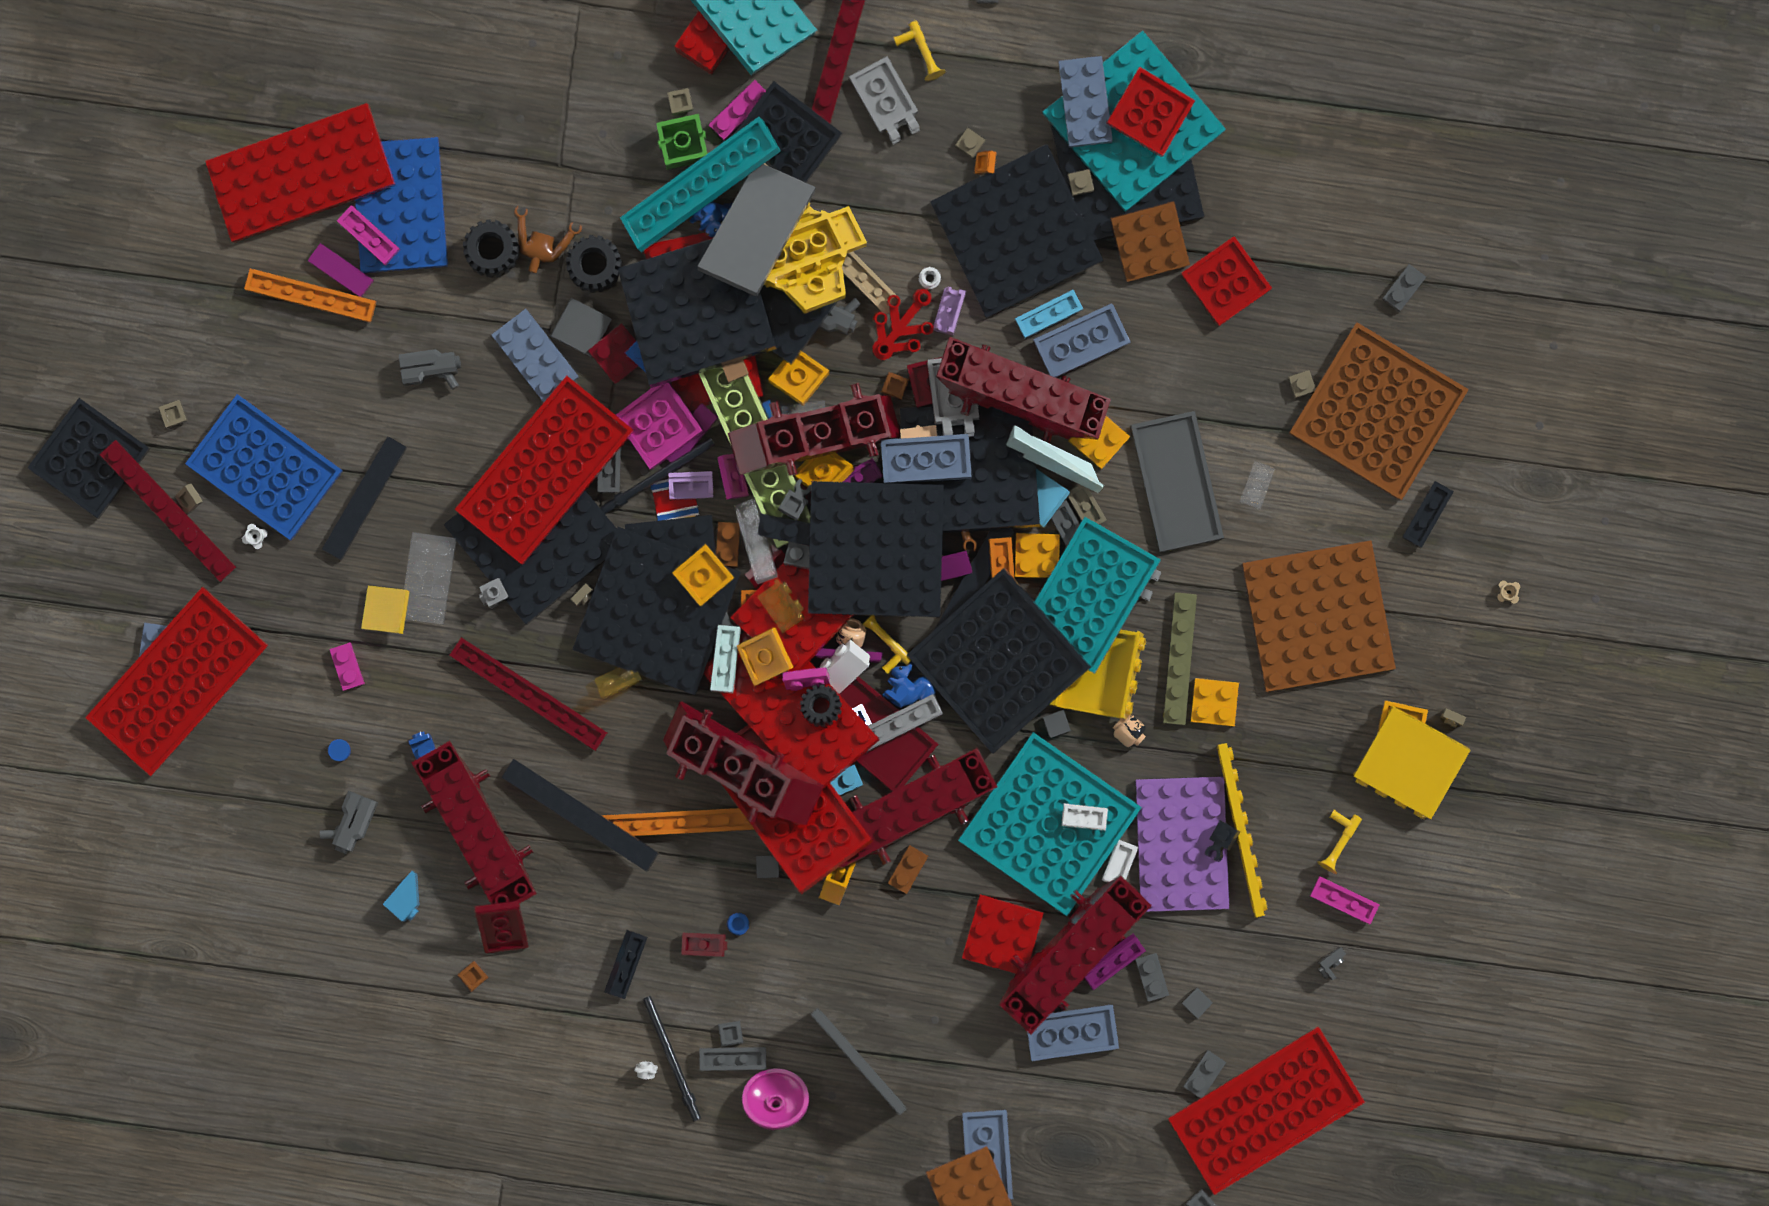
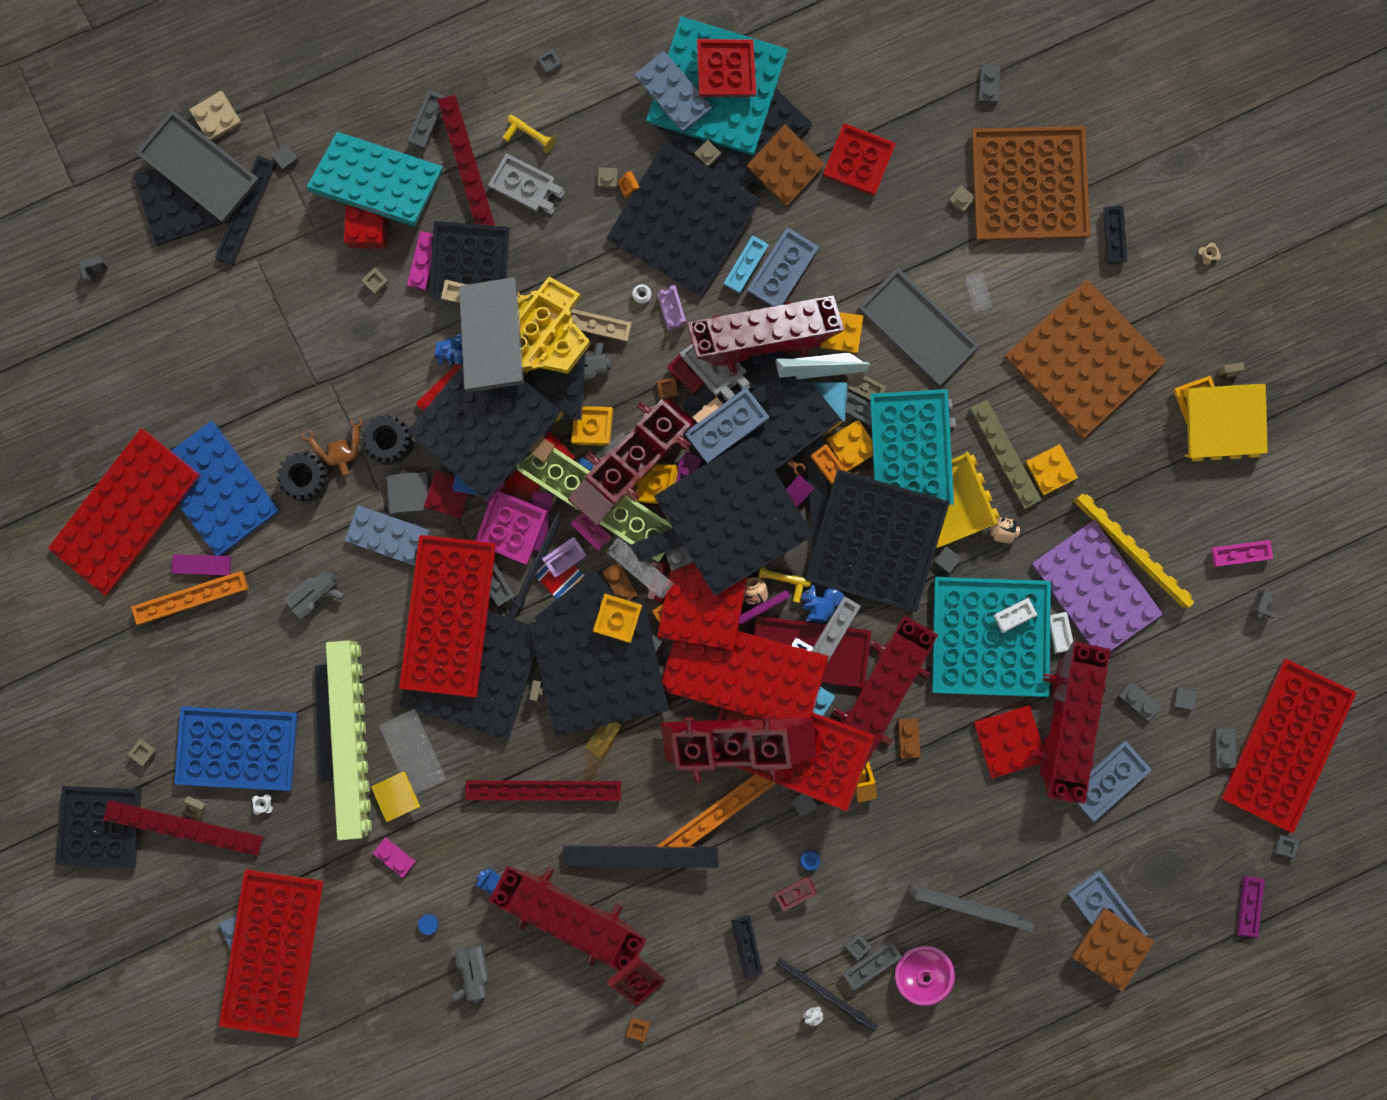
camera: 30 degrees left, 0 degrees up
(368, 235) = (204, 525): dark pink plate -> none
(375, 526) = (348, 740): none -> yellowish green brick
(405, 898) = (550, 1005): dark azure slope -> none
(493, 593) = (468, 732): light grey bracket -> none
(682, 141) = (395, 308): bright green brick -> none
(700, 184) = (428, 330): teal plate -> none
(725, 659) = (674, 669): light aqua plate -> none
(764, 656) = (703, 649): light orange plate -> none
(780, 606) = (691, 604): clear yellow bracket -> none
(794, 502) = (650, 520): dark grey plate -> none
(805, 678) = (750, 641): dark pink plate -> none
(817, 693) = (780, 664): black tyre -> none
(846, 665) = (766, 617): white brick -> none
(899, 326) = (643, 342): red plant -> none
(1114, 961) = (1110, 697): magenta tile -> none
(1223, 837) = (1126, 564): black plate -> none
(1351, 826) = (1213, 533): yellow piece -> none

